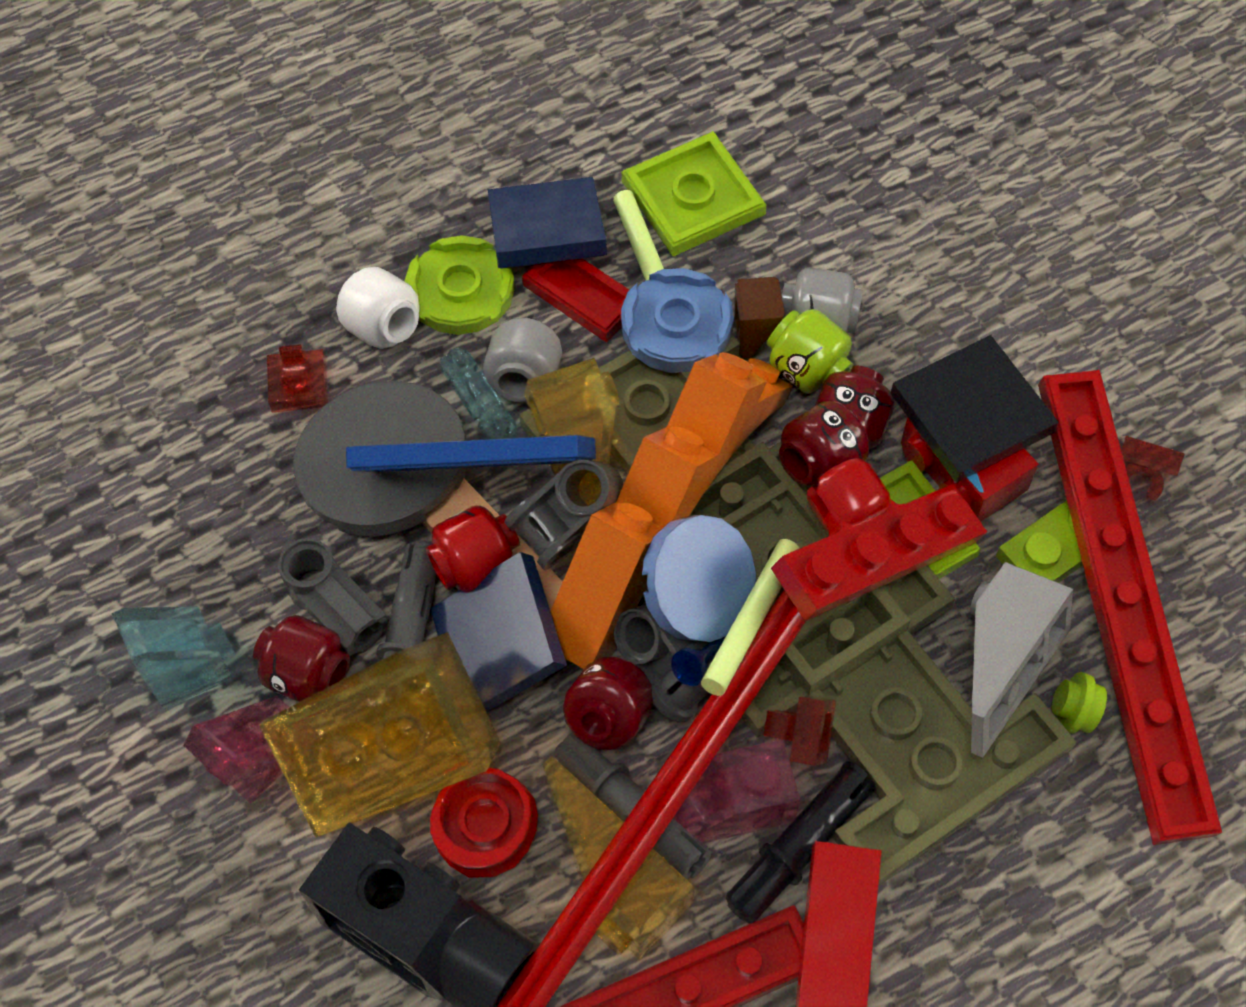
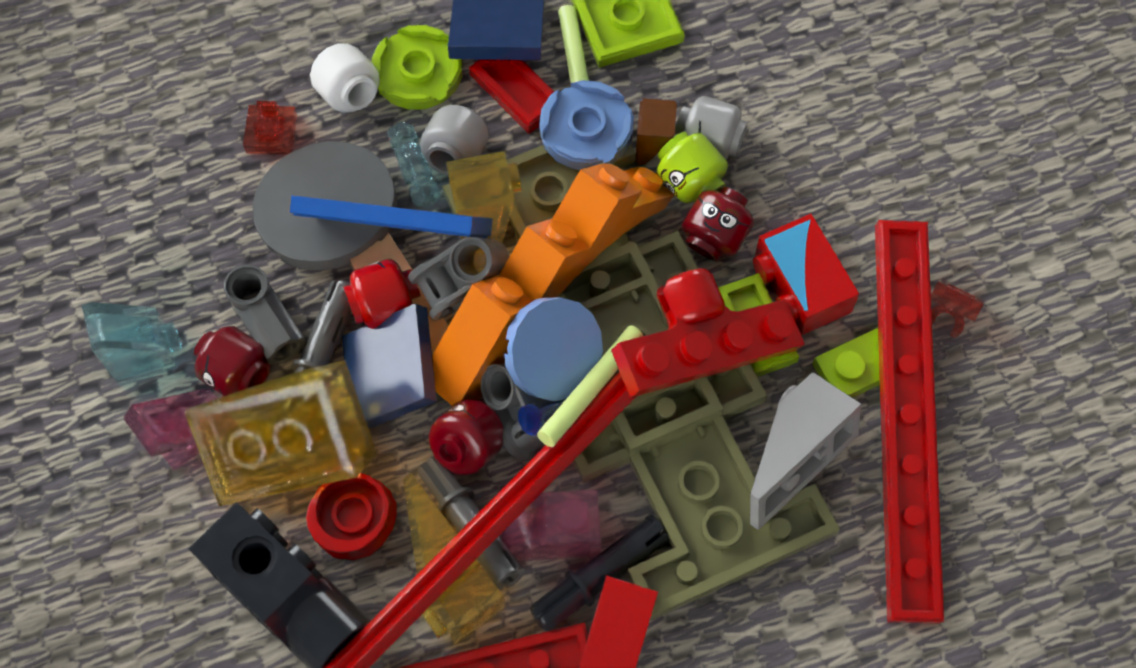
camera: 10 degrees right, 5 degrees up
(808, 729) = (620, 484): clear red tile -> none
(821, 441) = (681, 247): dark red head -> none
(973, 408) = (814, 238): black tile -> none
(1079, 703) = (850, 498): lime plate -> none

